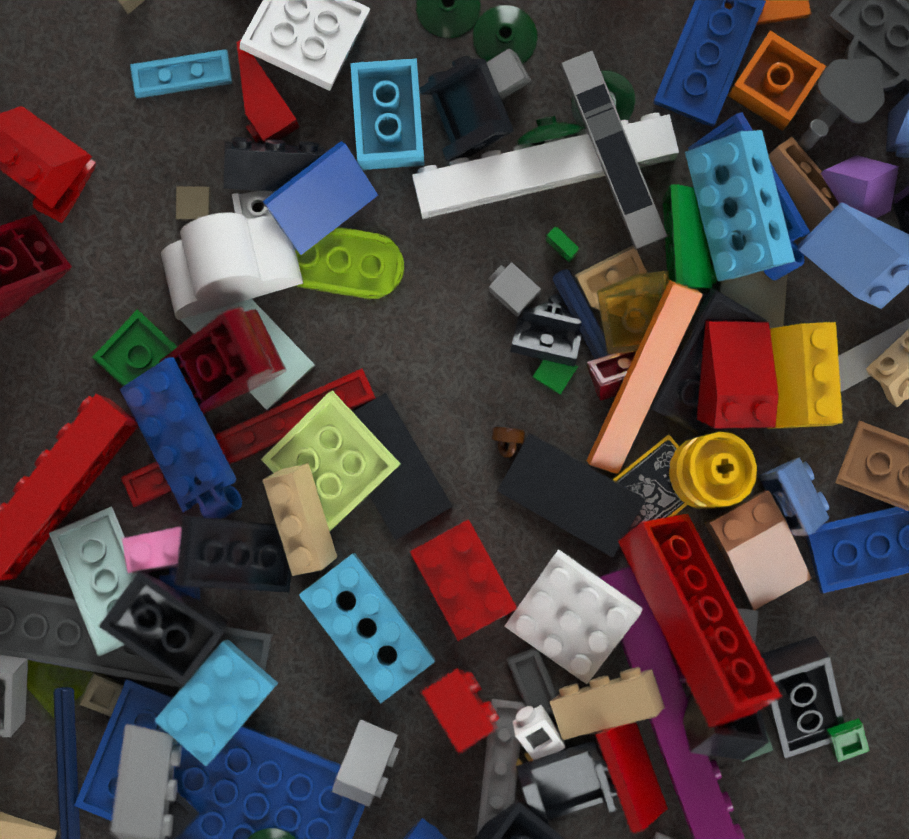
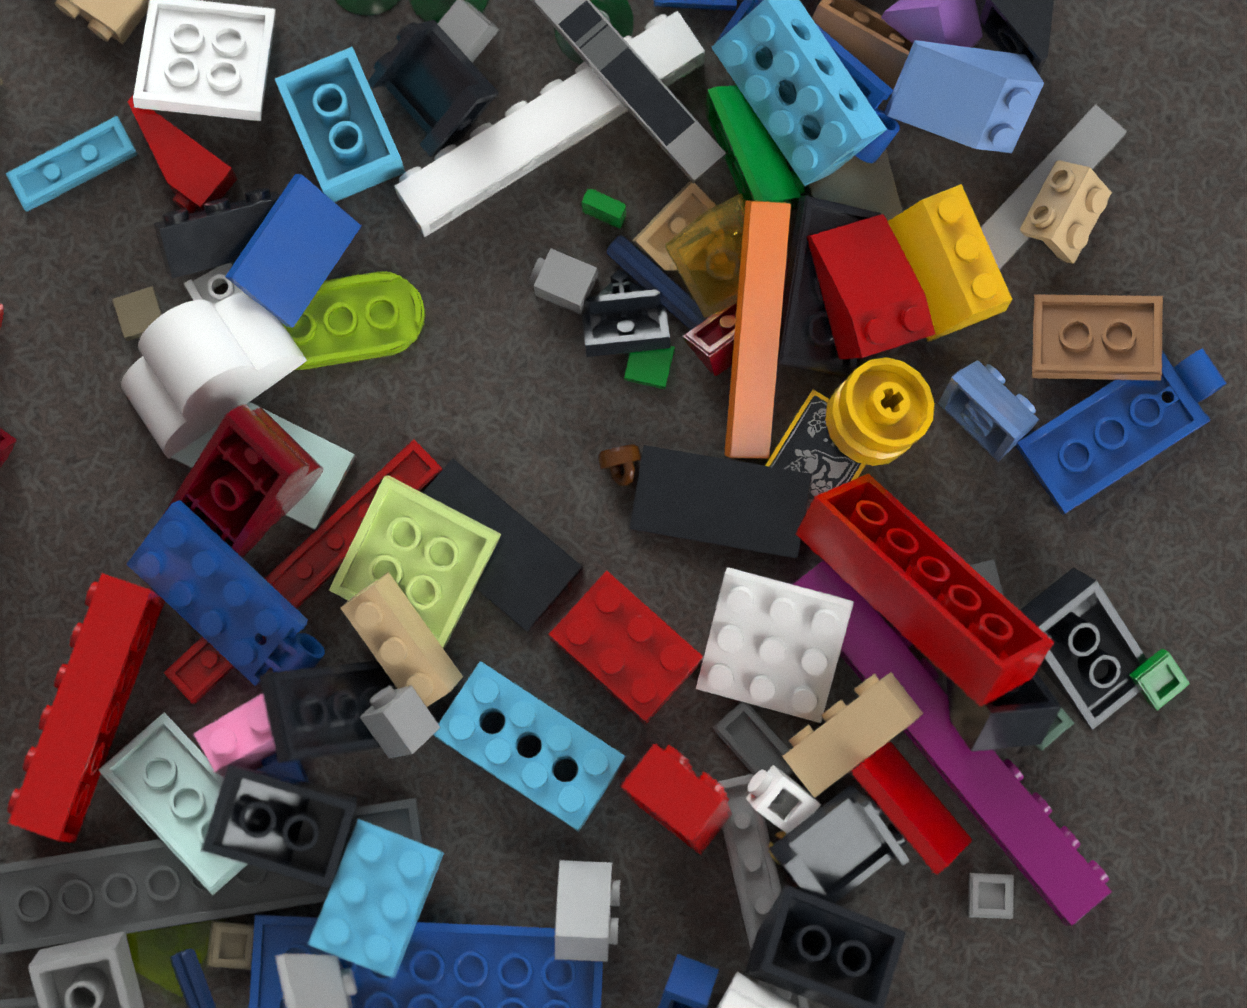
camera: 20 degrees left, 5 degrees down
(133, 349) = (125, 512): green tile -> none
(277, 578) = (399, 721): none -> light grey brick
(548, 129) = (538, 76): dark green dish -> none
(759, 549) = (970, 488): nougat slope -> none

